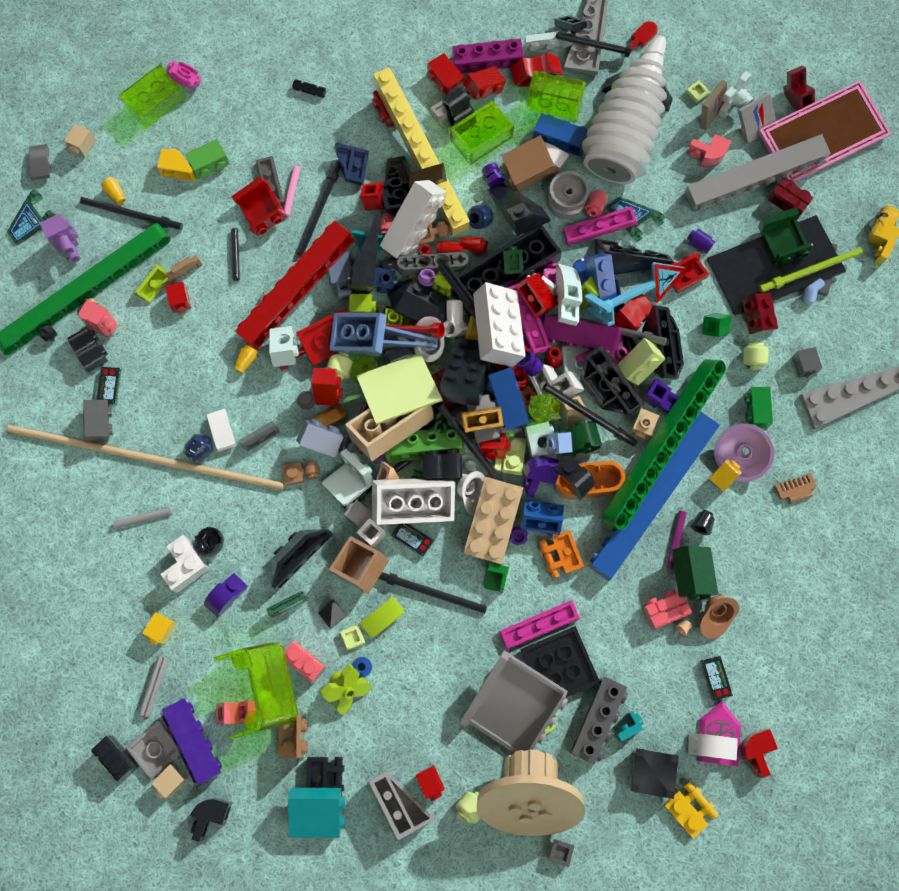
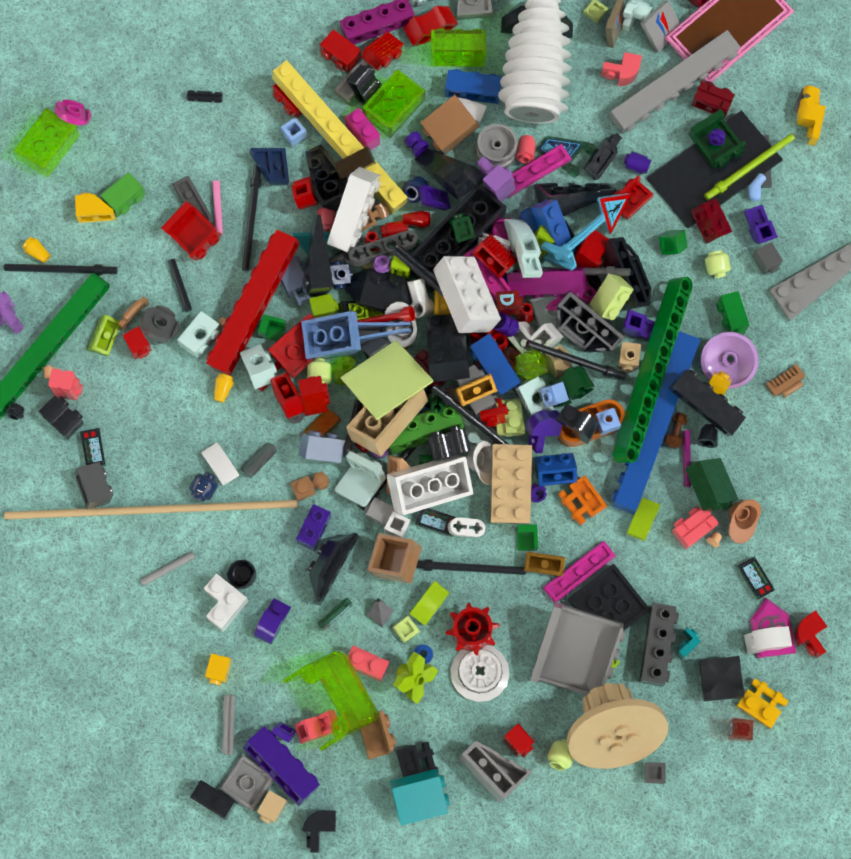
camera: 20 degrees left, 0 degrees up
(197, 291) = (155, 331): none -> dark grey plate
(203, 708) = (284, 732): none -> dark purple tile
(240, 294) = (200, 324): none -> light aqua brick
(291, 513) = (313, 527): none -> dark purple brick
(301, 380) = (287, 395): none -> red brick
(307, 313) = (271, 328): none -> green panel
(381, 138) = (291, 127): none -> light blue plate
(405, 714) = (479, 687): none -> white piece
(408, 646) = (472, 640): none -> red brick
(437, 556) = (466, 532): none -> white beam
(446, 150) = (362, 129): none -> dark pink brick
(495, 228) = (434, 197): none -> dark purple plate
(506, 608) = (544, 564): none -> pearl gold slope
(538, 342) = (509, 302): none -> clear red brick
(559, 224) = (497, 180): none -> medium lavender brick
(601, 487) = (607, 427): none -> light blue plate
(617, 589) = (643, 519): none -> lime slope
(661, 833) = (741, 730): none -> clear red brick
(667, 517) = (673, 440): none -> reddish brown bar
(668, 227) = (602, 156): none -> black hinge
(711, 489) = (707, 403): none -> black brick
(785, 233) = (716, 137): none -> dark purple plate
(807, 330) = (760, 227): none -> dark purple brick

